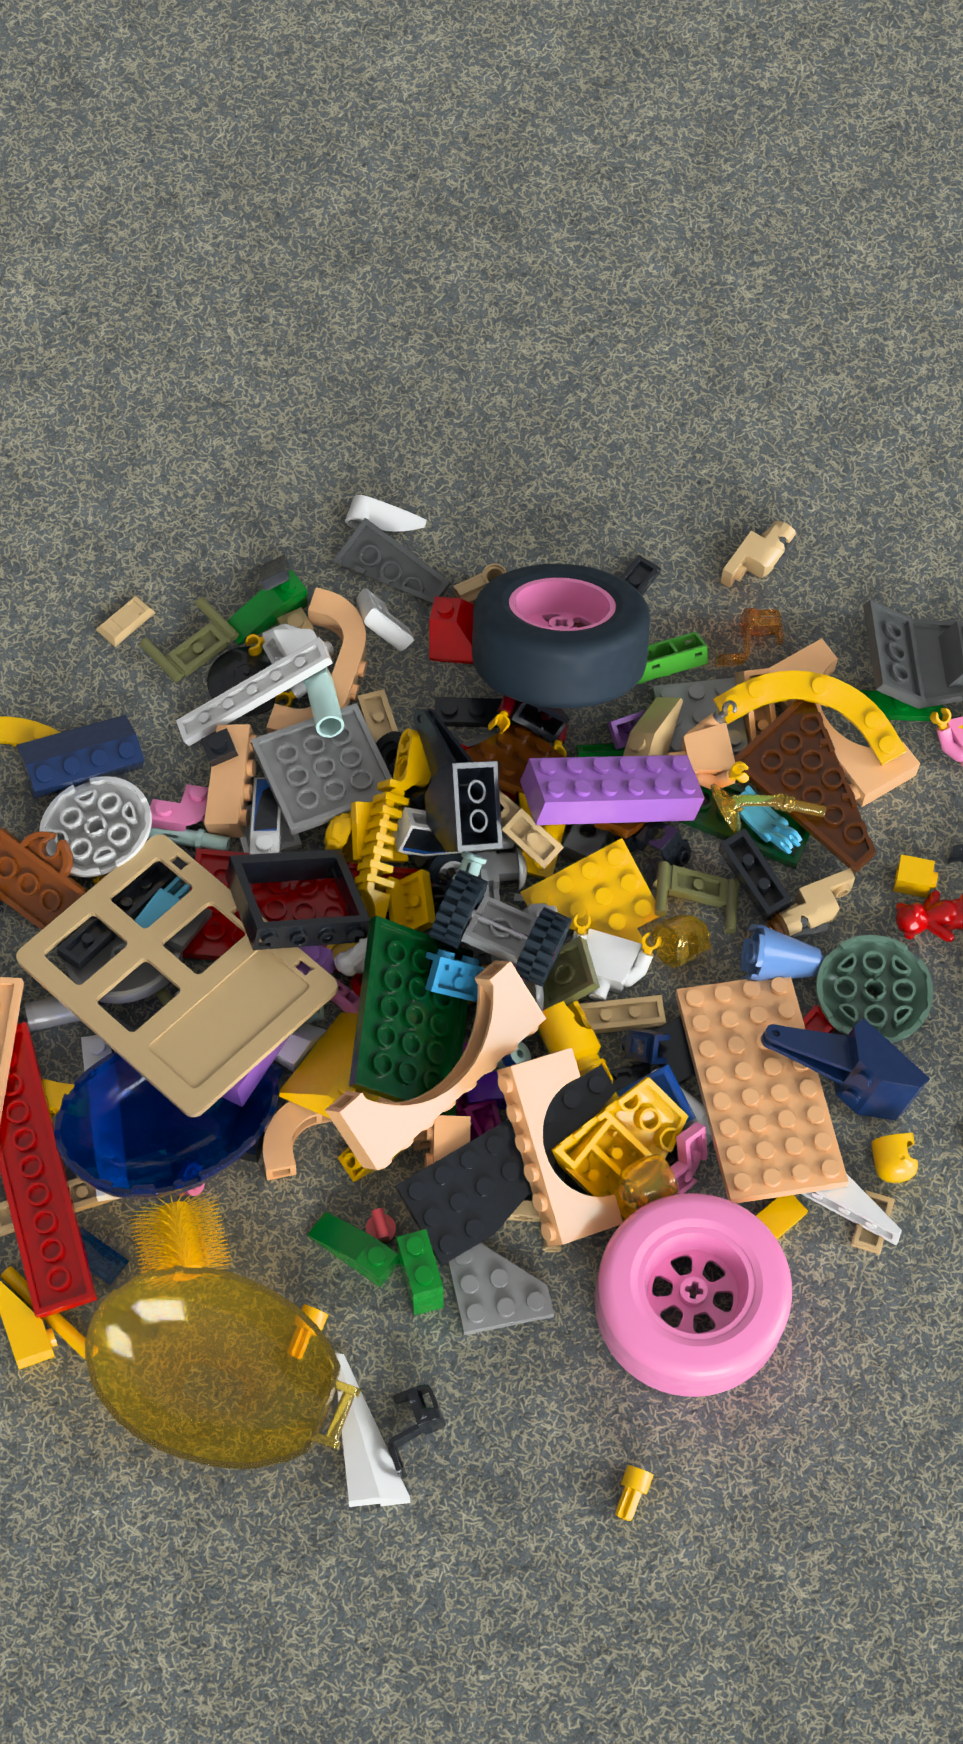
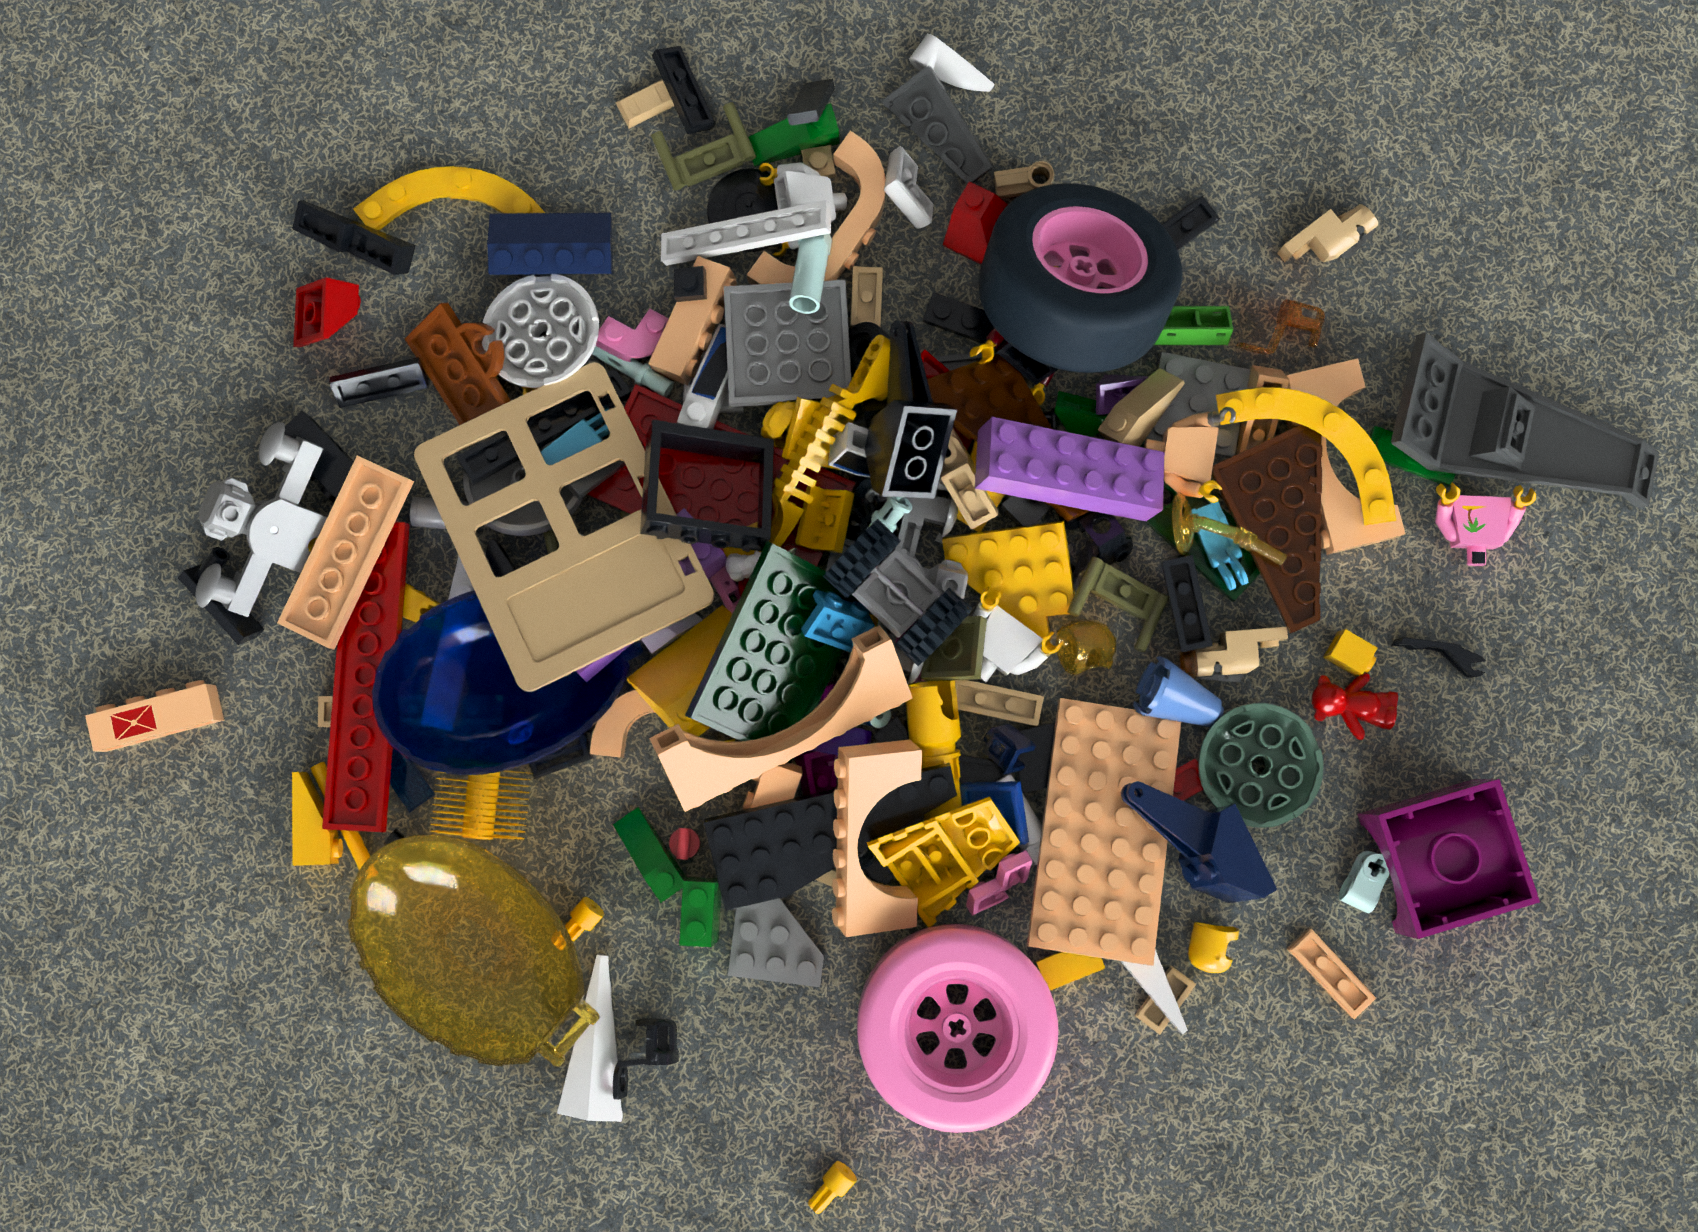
camera: 25 degrees right, 20 degrees up
(155, 600) = (683, 89): none -> black tile
(242, 1197) = (584, 745): none -> black tile
(646, 1181) = (950, 903): clear yellow piece -> none

